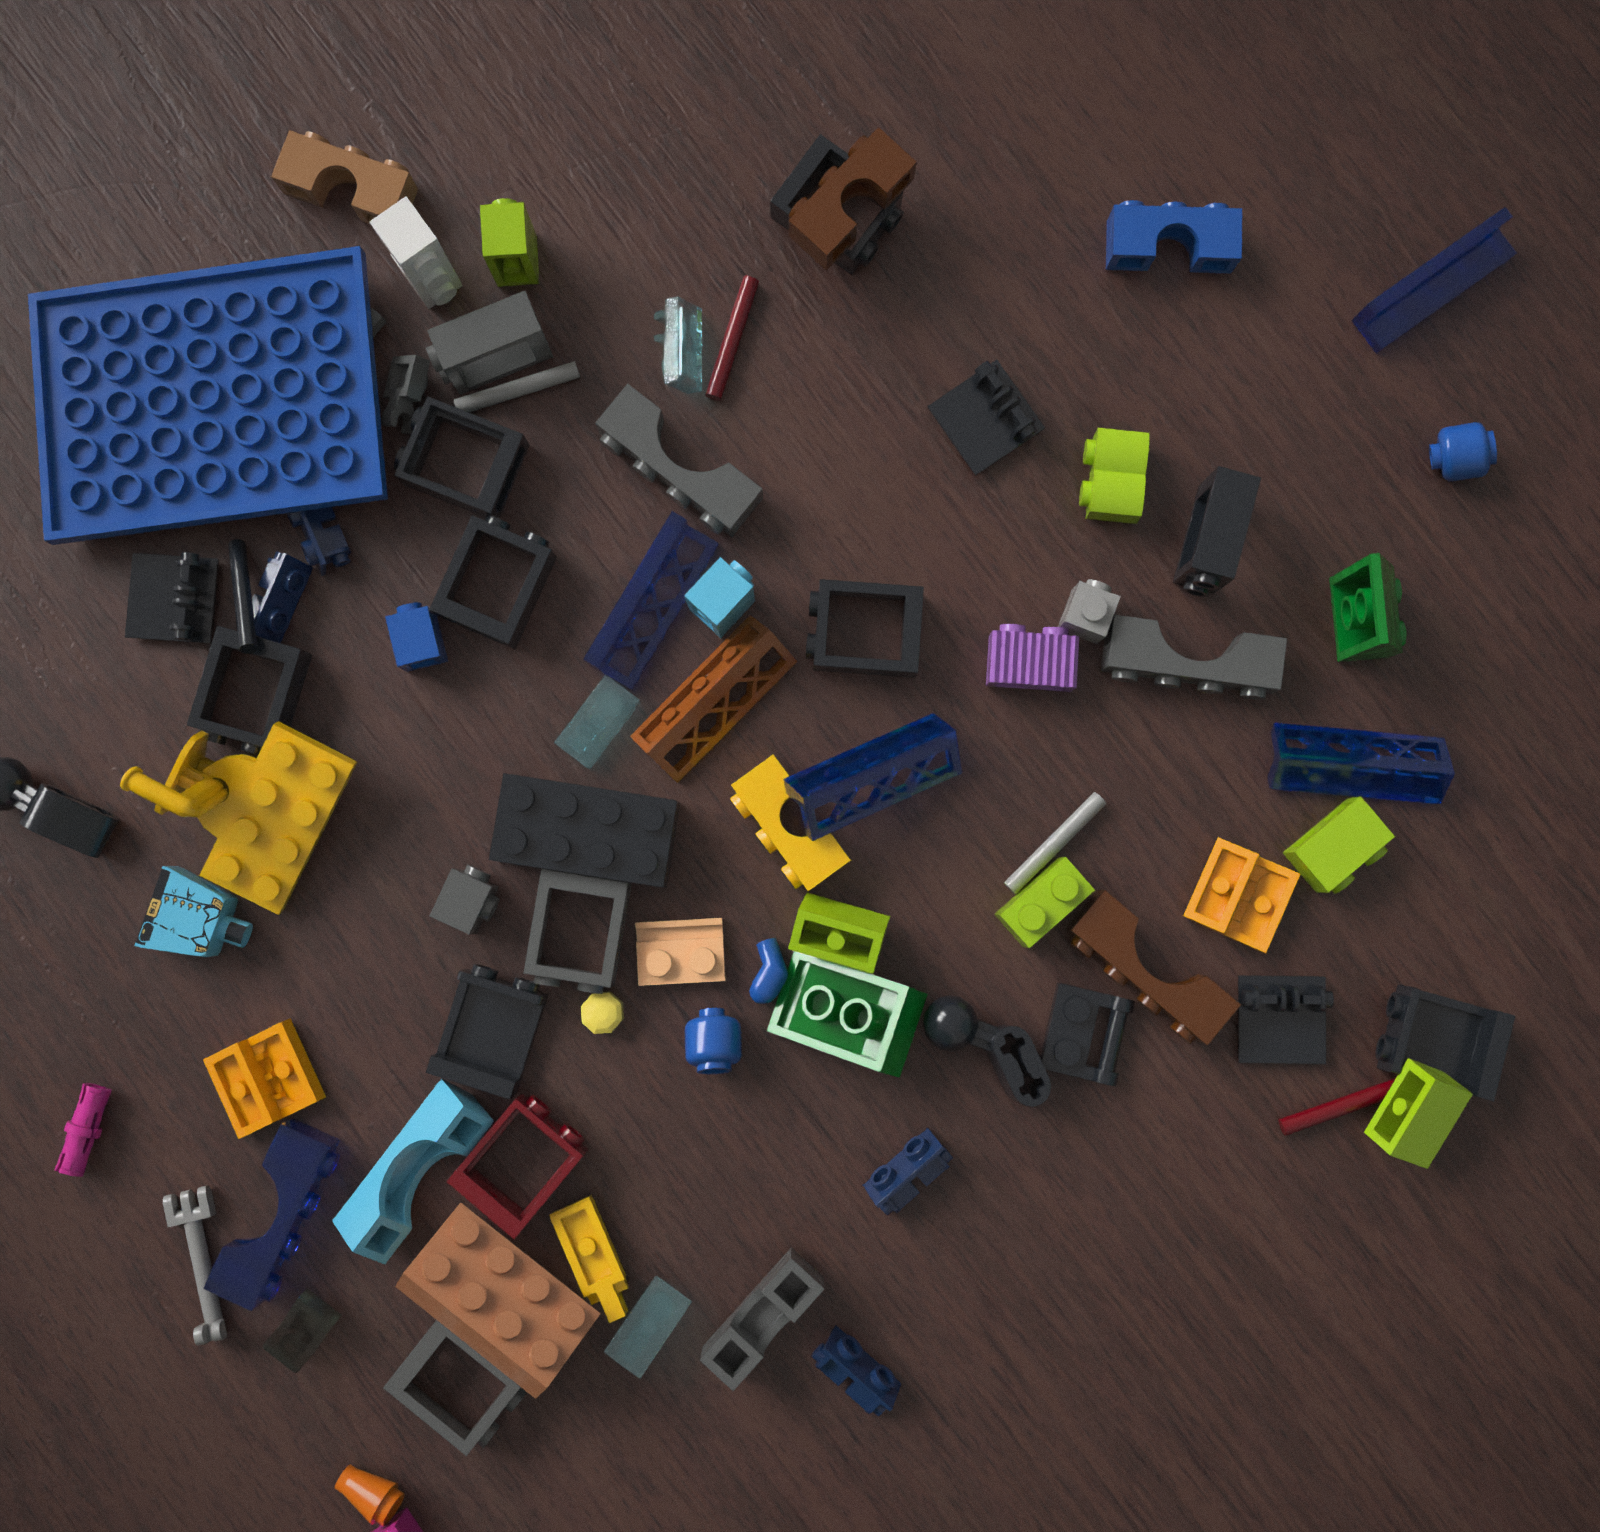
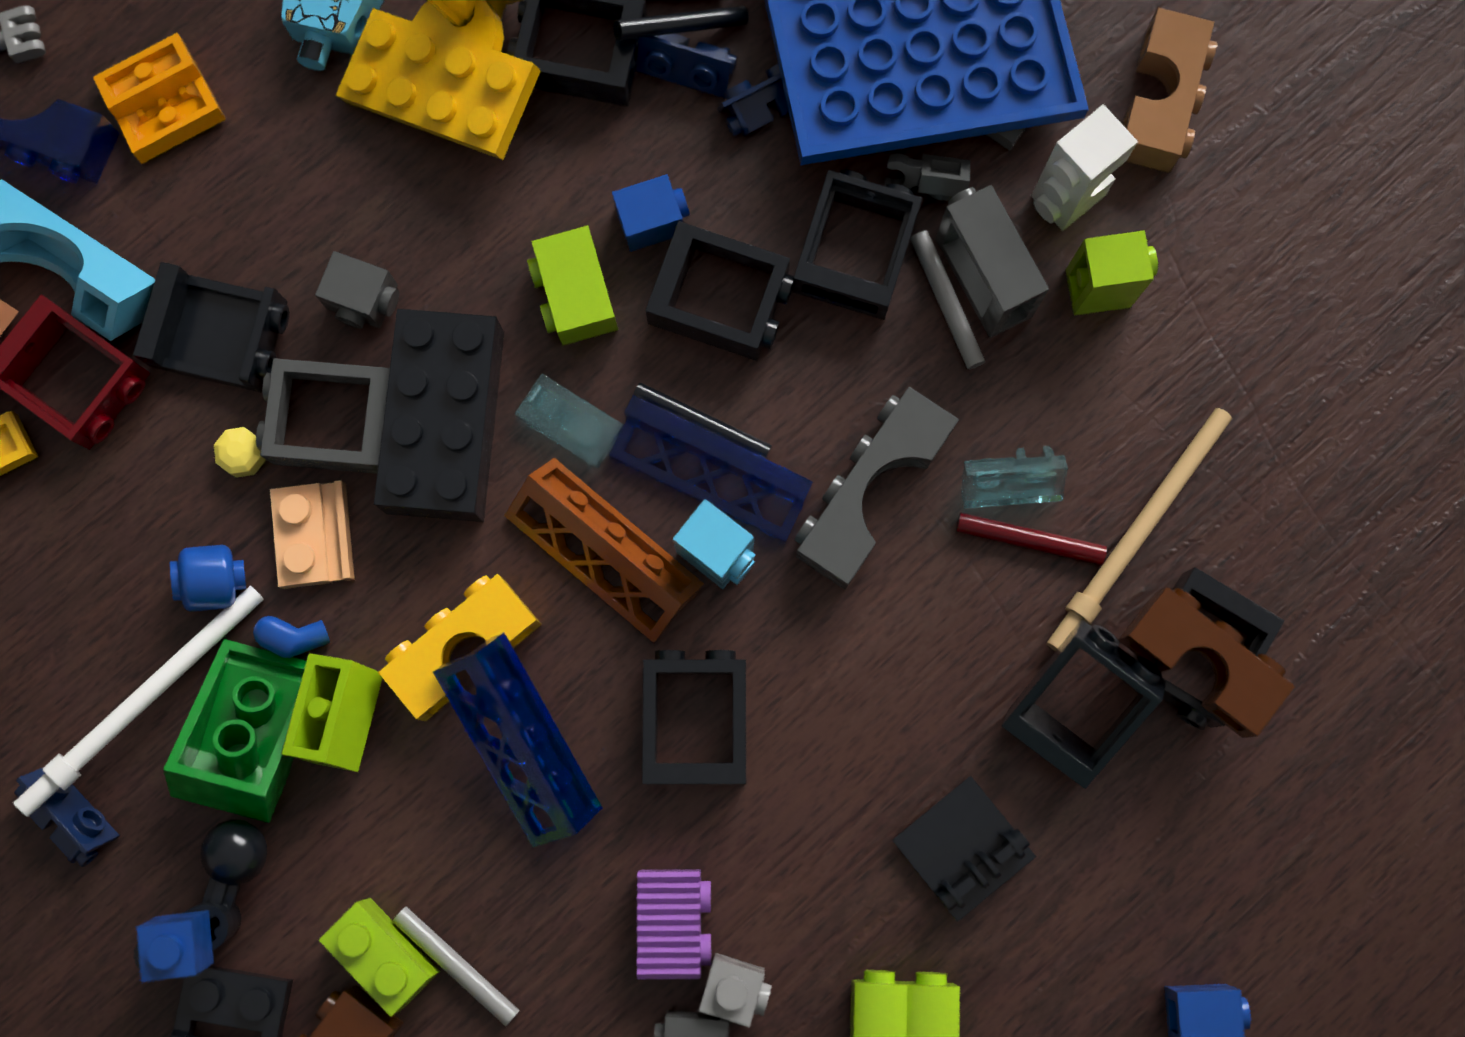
camera: 90 degrees right, 5 degrees down
(477, 709) = (573, 286): none -> lime brick
(606, 607) = (702, 420): none -> black bar
(793, 298) = (1086, 605): none -> tan bar
(872, 1165) = (64, 770): none -> white bar
(906, 331) = (1057, 742): none -> black window
(1027, 1064) = (175, 945): none -> blue brick

